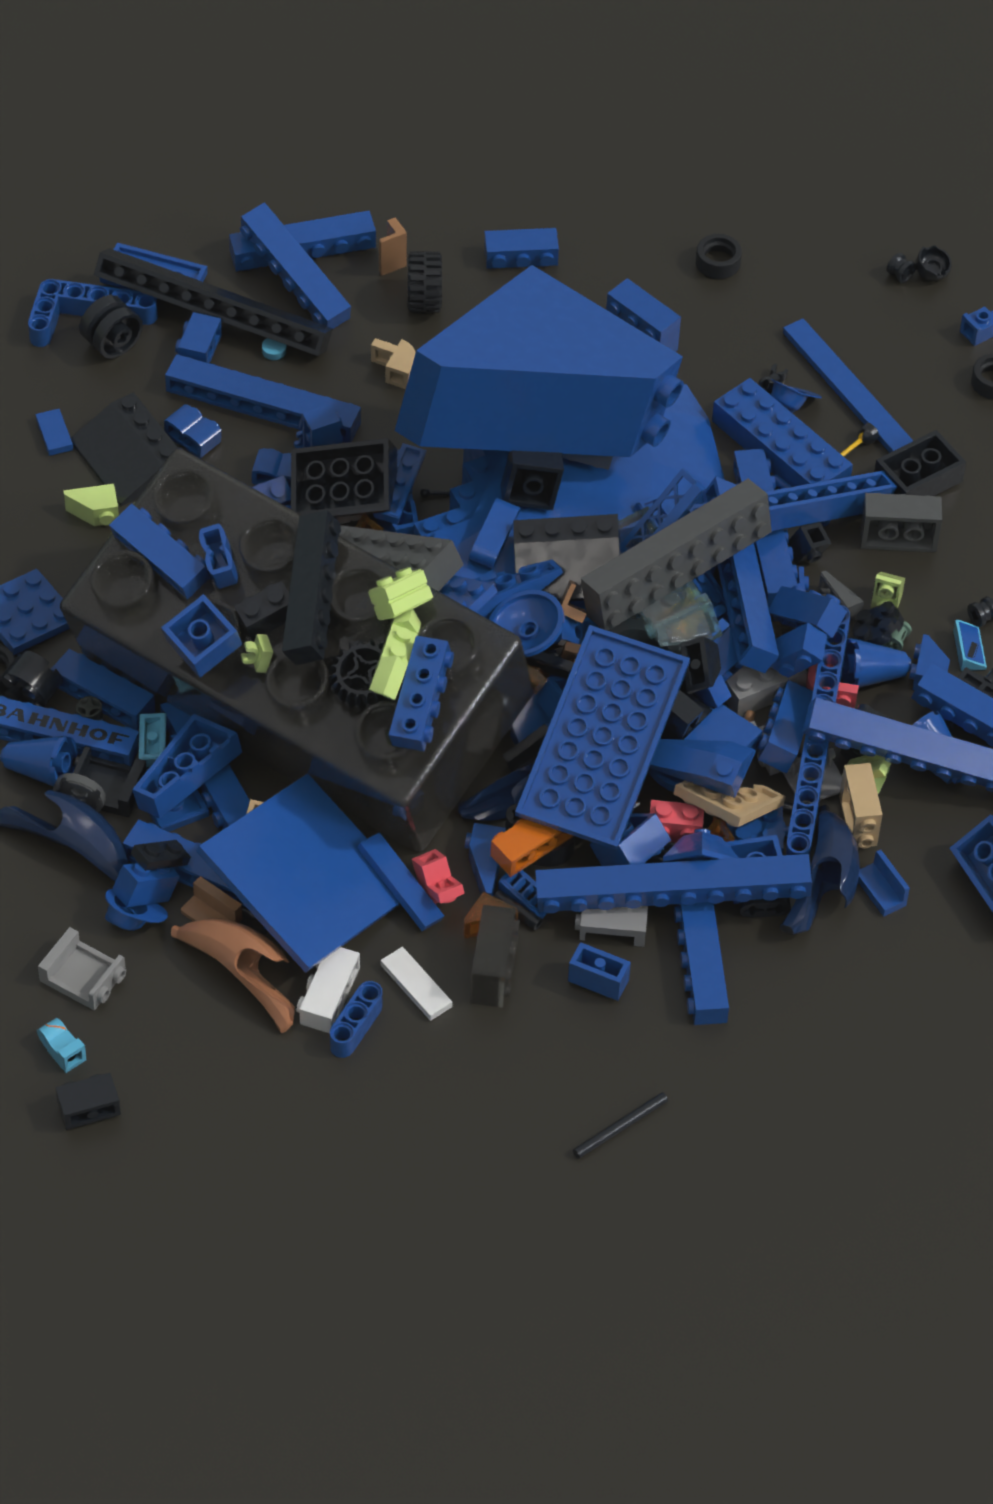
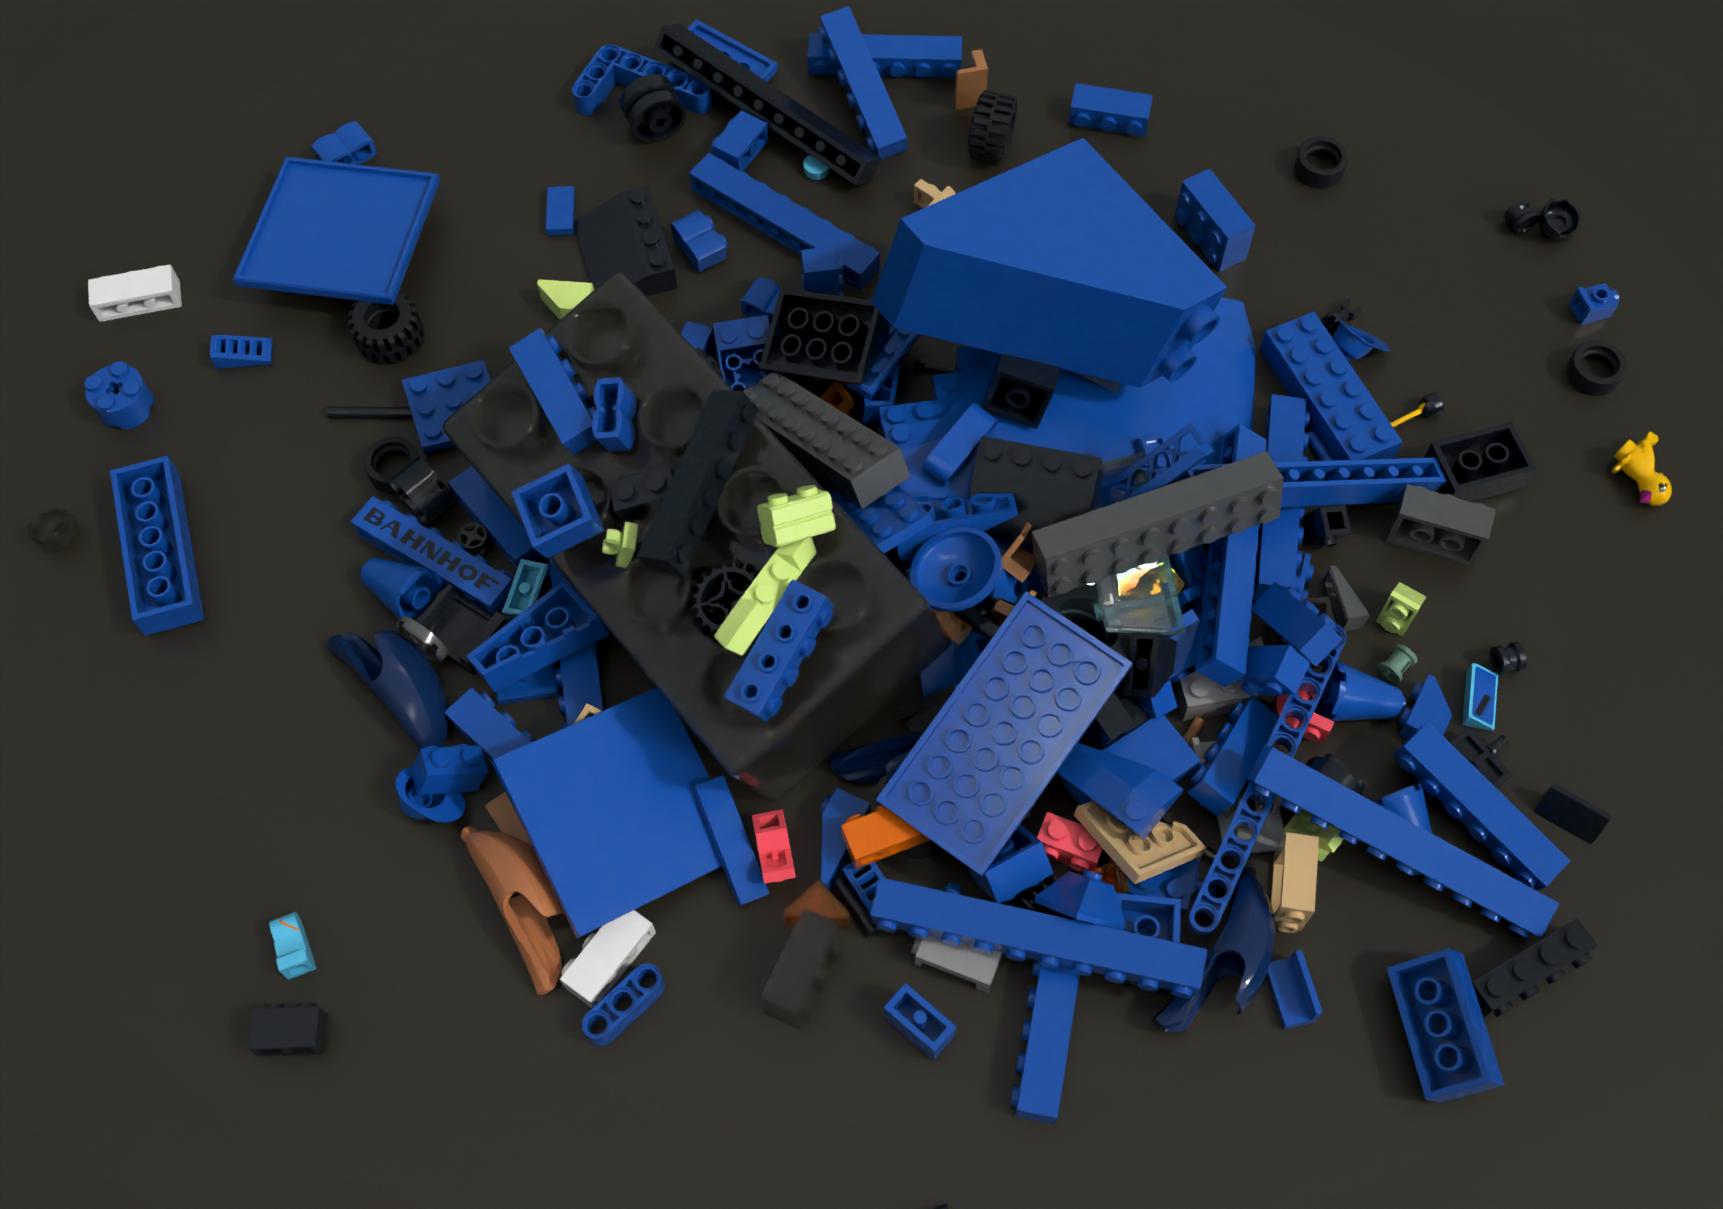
camera: 20 degrees right, 10 degrees up
(81, 970) = (349, 855): light grey panel -> none
(160, 855) = (470, 743): black plate -> none
(416, 983) = (710, 973): white tile -> none
(846, 384) = (1423, 344): blue tile -> none
(878, 623) = (1368, 637): black plate -> none

